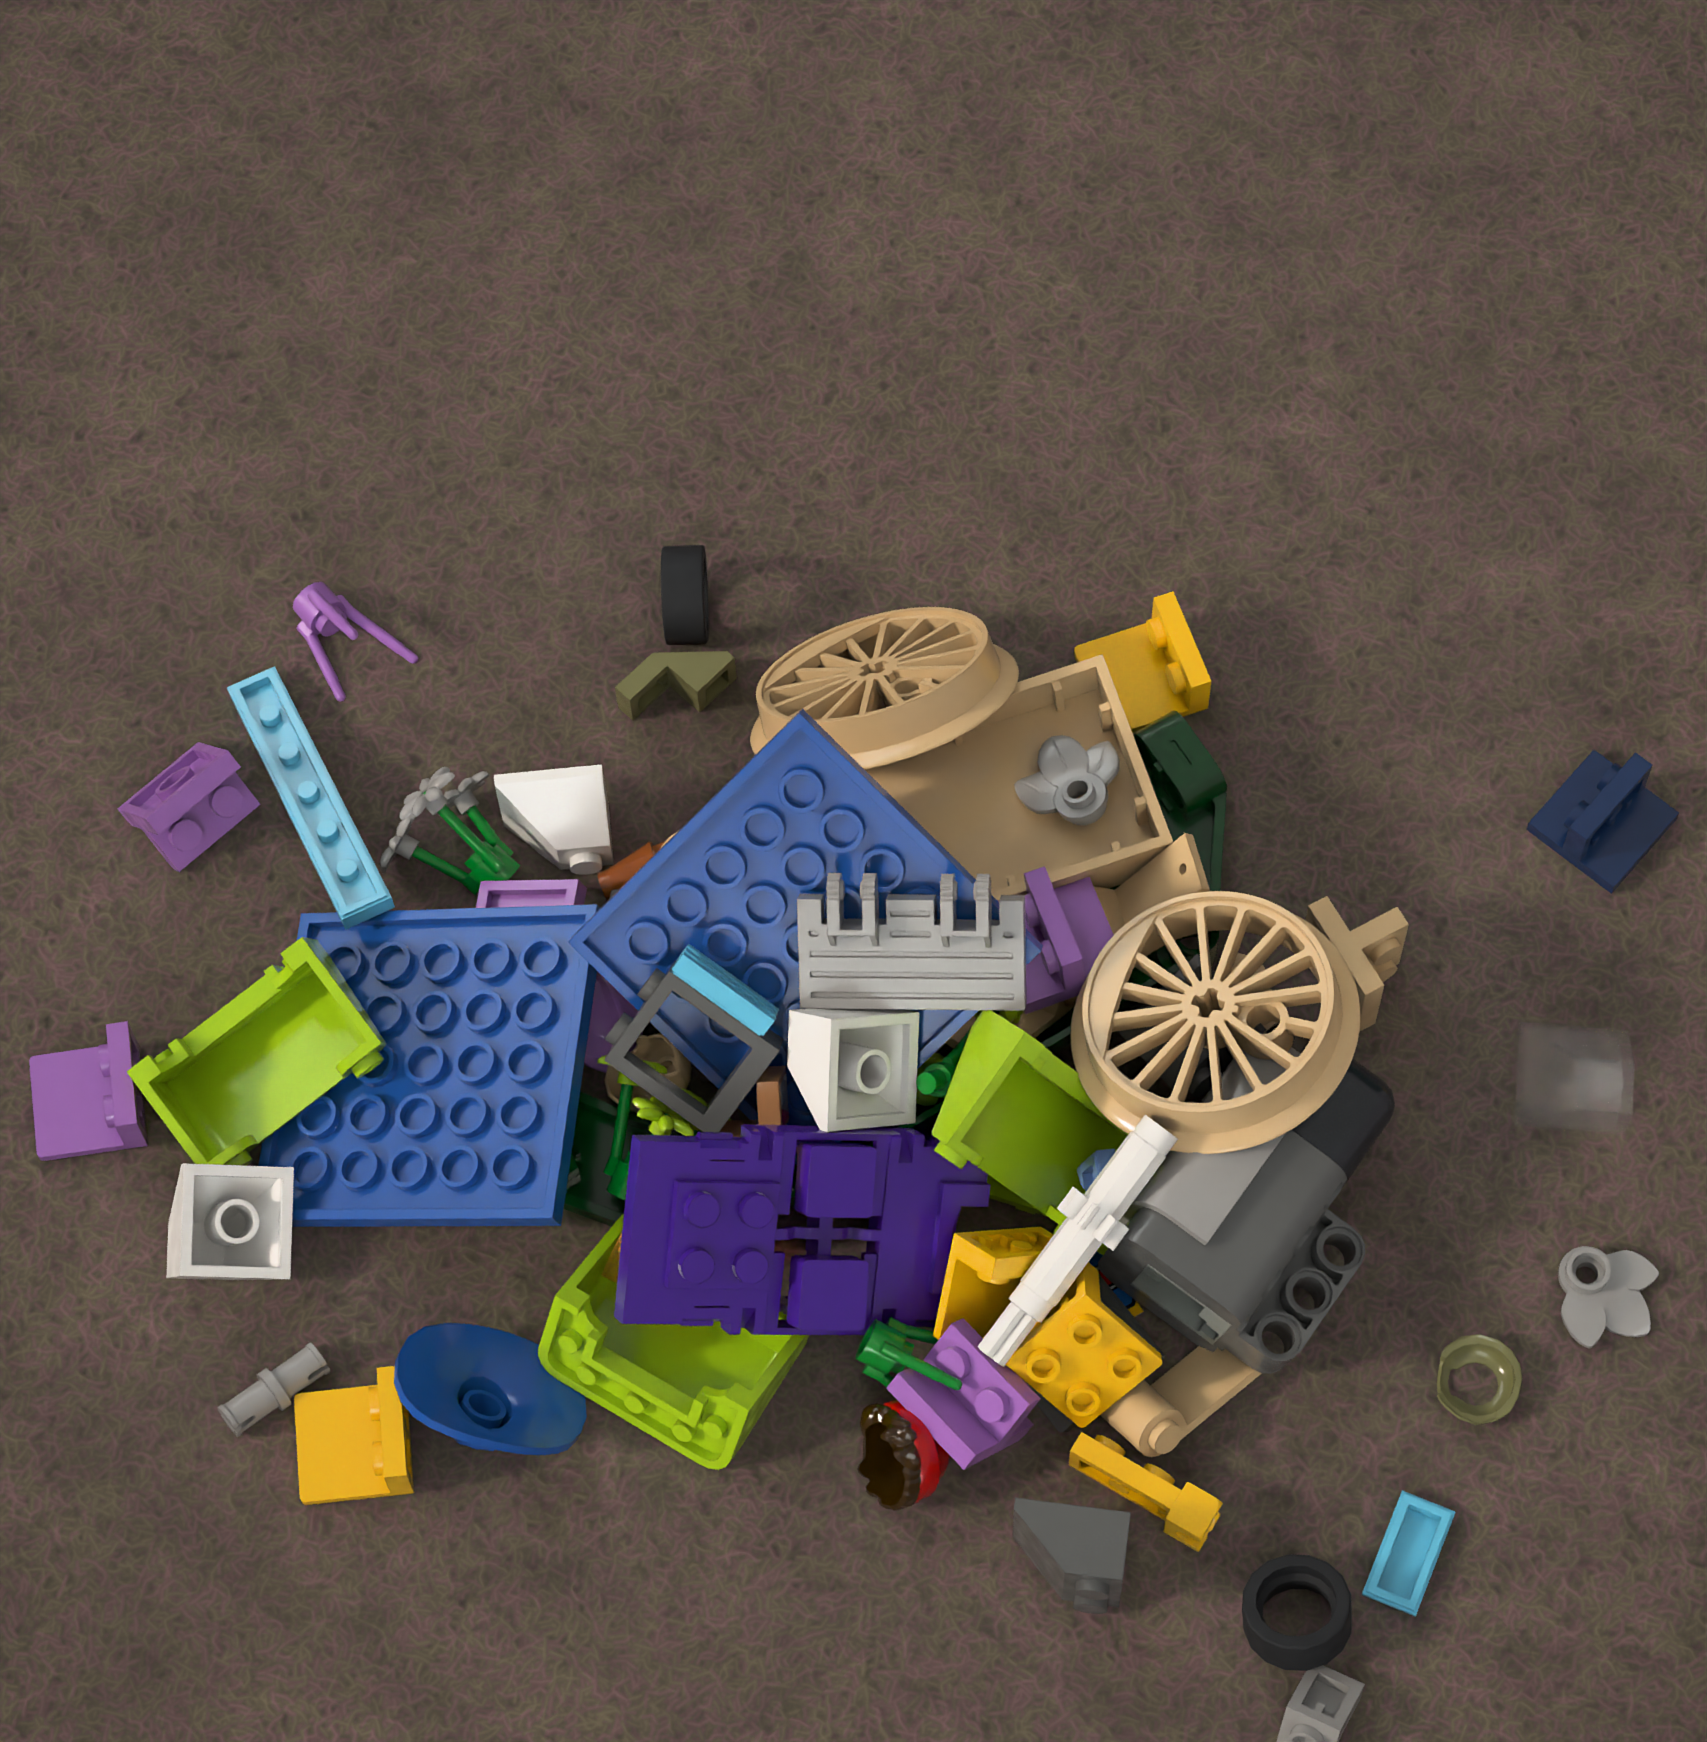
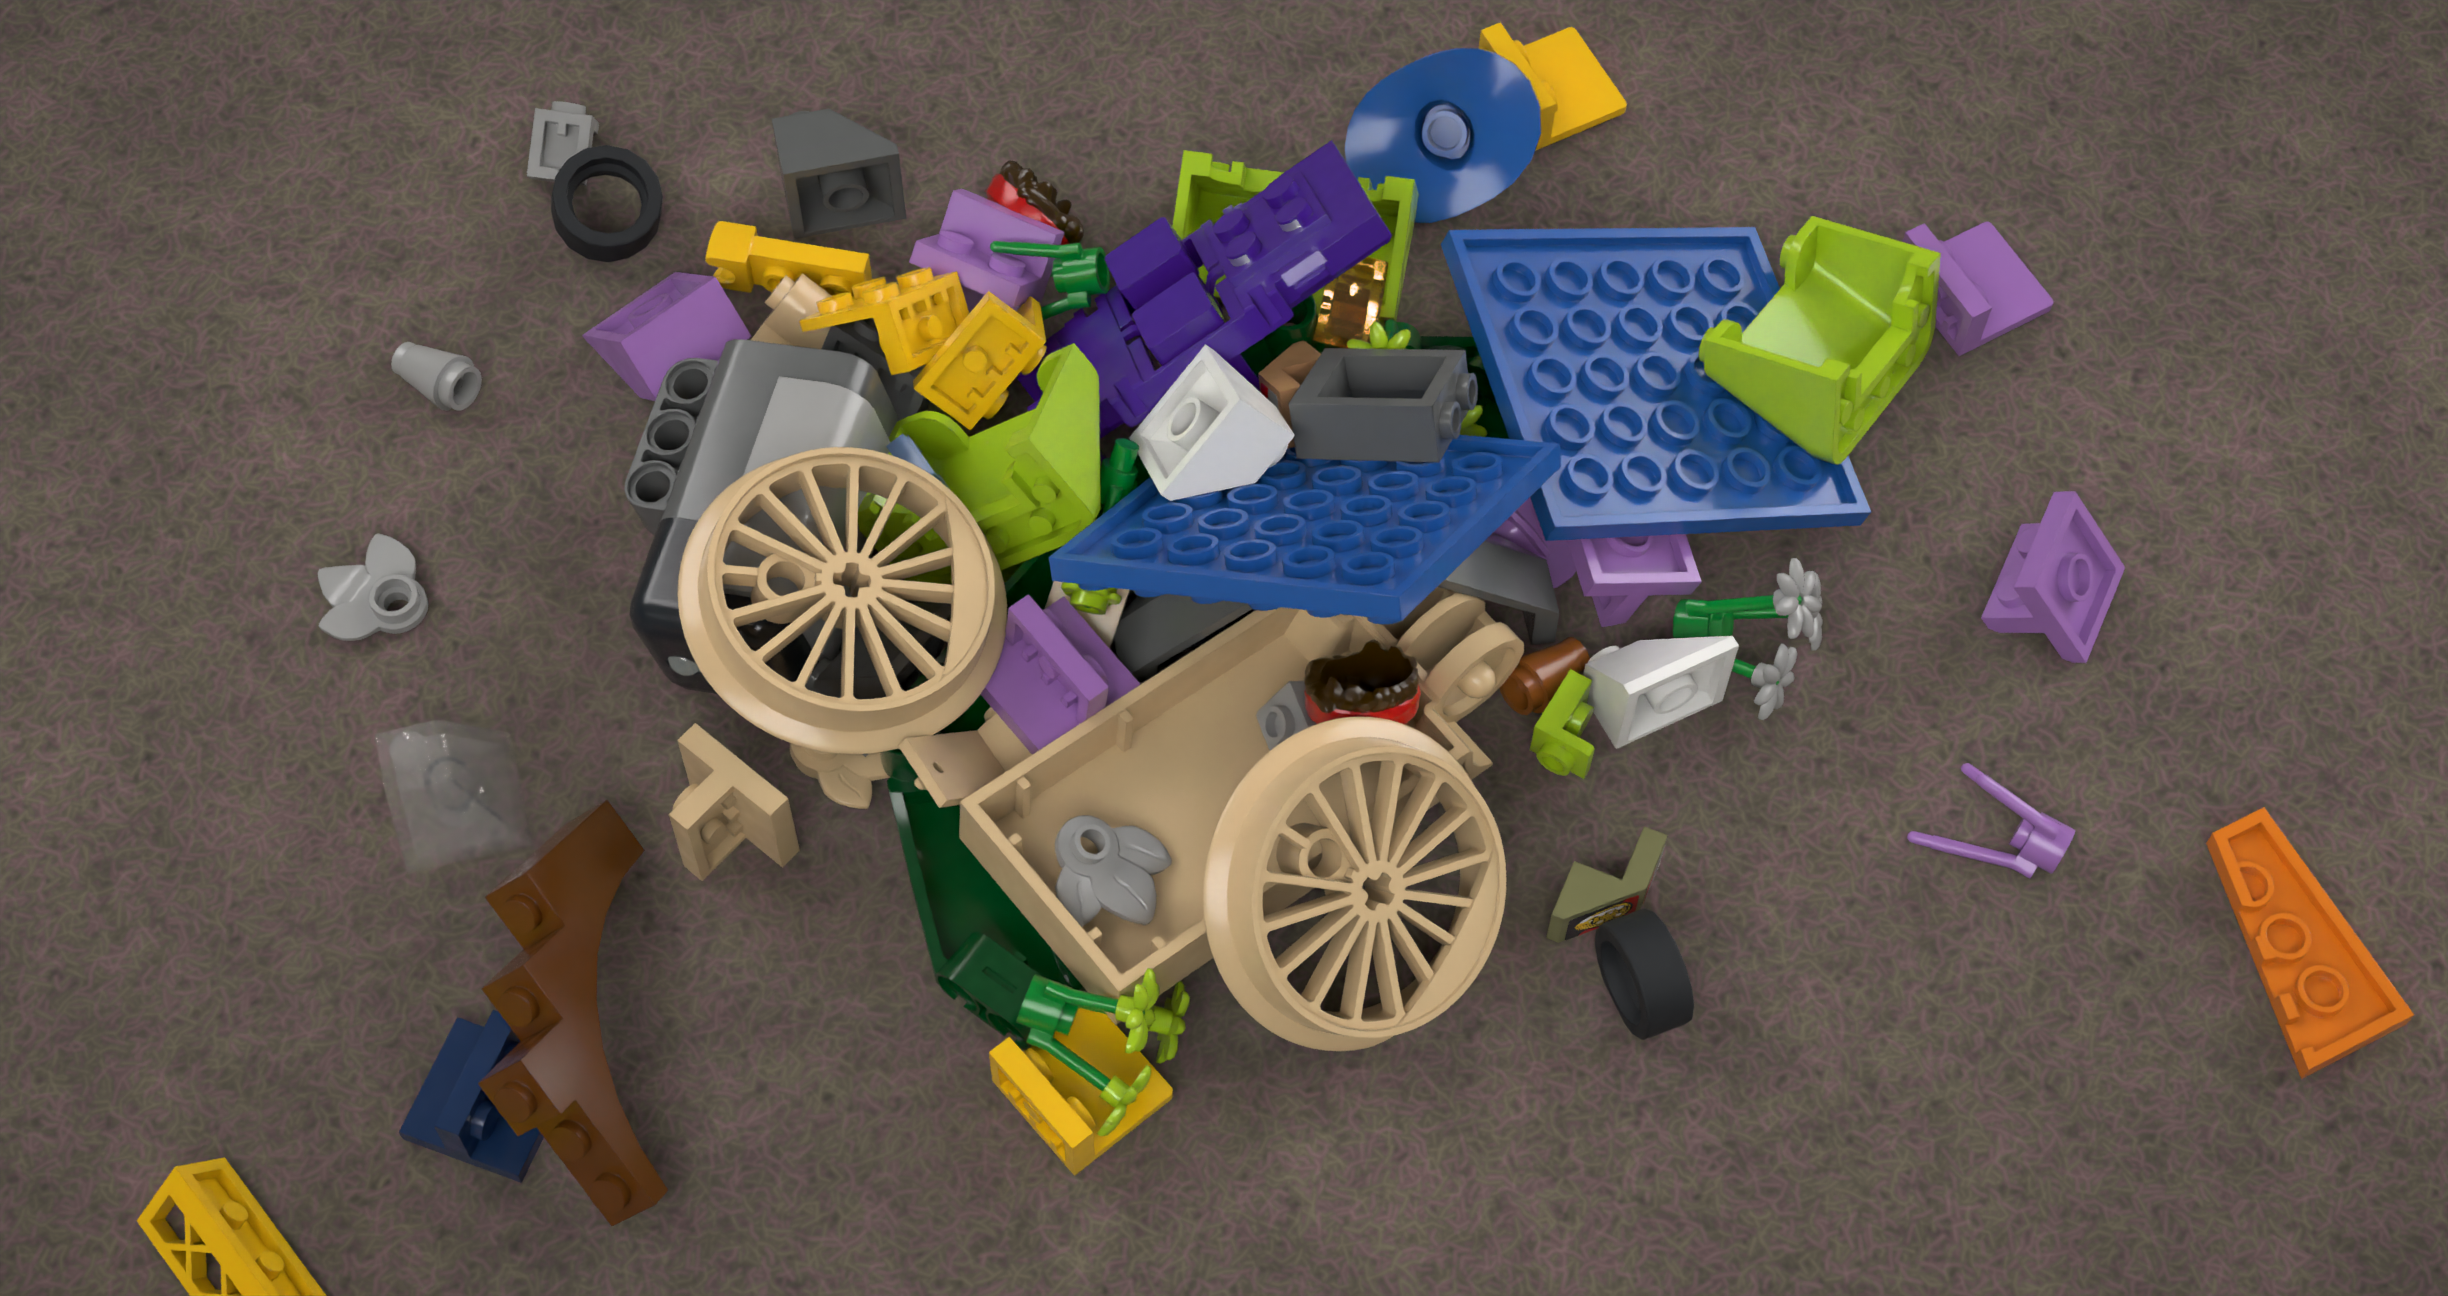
camera: 155 degrees right, 5 degrees down
(174, 466) = (2308, 956): none -> orange wing
(231, 1223) = (1760, 187): white slope -> none
(273, 1389) = (1649, 103): light grey pin -> none
(311, 798) = (1932, 623): medium azure tile -> none
(650, 823) = (1561, 725): none -> lime bracket
(725, 990) = (1371, 447): medium azure tile -> none
(911, 954) = (1186, 512): light grey hinge -> none
(1089, 1223) = (907, 366): white piece -> none
(1152, 694) = (1054, 1006): none -> plant
(1279, 1457) = (664, 325): none -> medium lavender slope
(1408, 1553) = (515, 301): medium azure tile -> none
(1495, 1356) = (476, 443): olive piece -> none
(1501, 1492) = (438, 375): none -> light grey cone
(1539, 837) = (549, 1000): none -> reddish brown arch

